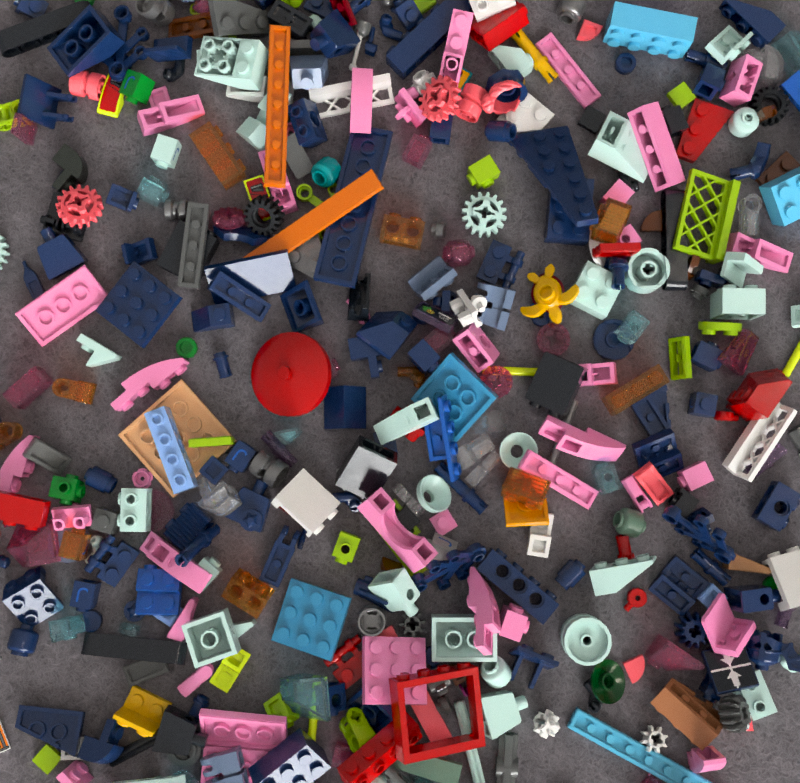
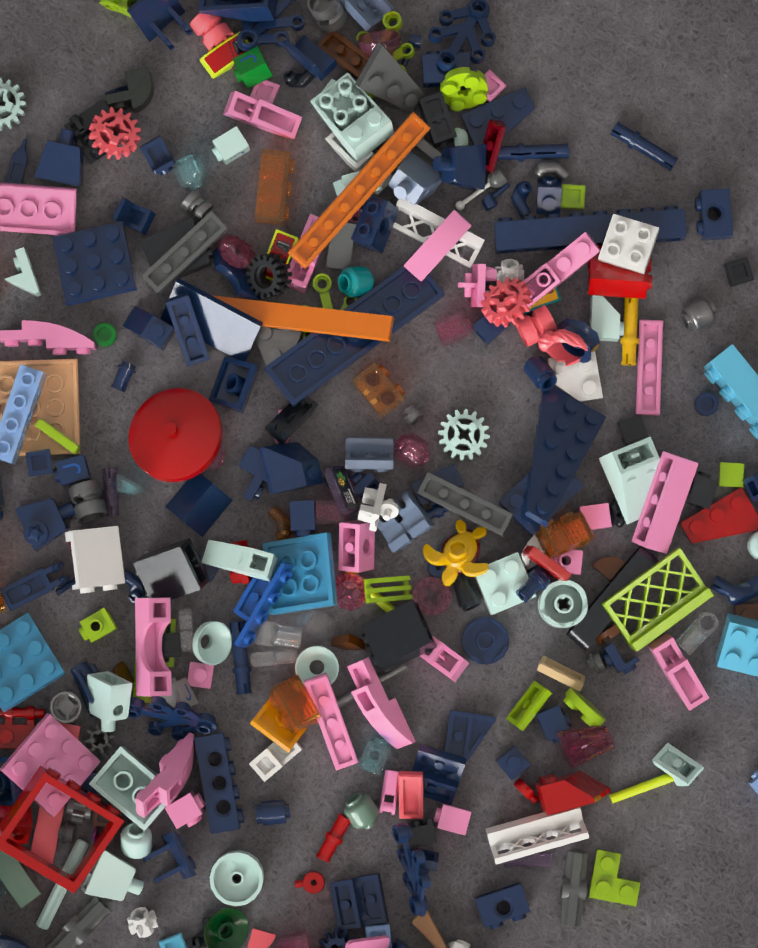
camera: 30 degrees right, 0 degrees up
(24, 129) = (122, 25): clear pink tile -> none
(219, 498) = (22, 492): clear brick -> none
(253, 132) = (321, 192): light aqua slope -> none
(483, 173) = (493, 397): lime brick -> none
(524, 416) = (348, 642): none -> reddish brown tile
(526, 257) = (465, 504): none -> dark grey piece
(530, 349) = (405, 588): none -> lime tile
(575, 319) = (466, 594): none -> black cone
(589, 30) = (699, 347): coral tile -> none
(614, 576) = (306, 844): light aqua slope -> none
(631, 327) = (506, 643): clear light blue brick -> none
(635, 390) = (464, 700): clear orange brick -> none
(683, 318) = (561, 673): none -> tan tile
(710, 566) = (400, 909): dark blue pin -> none
(737, 265) = (645, 669): light aqua panel -> none
(738, 303) = (617, 699): light aqua brick -> none

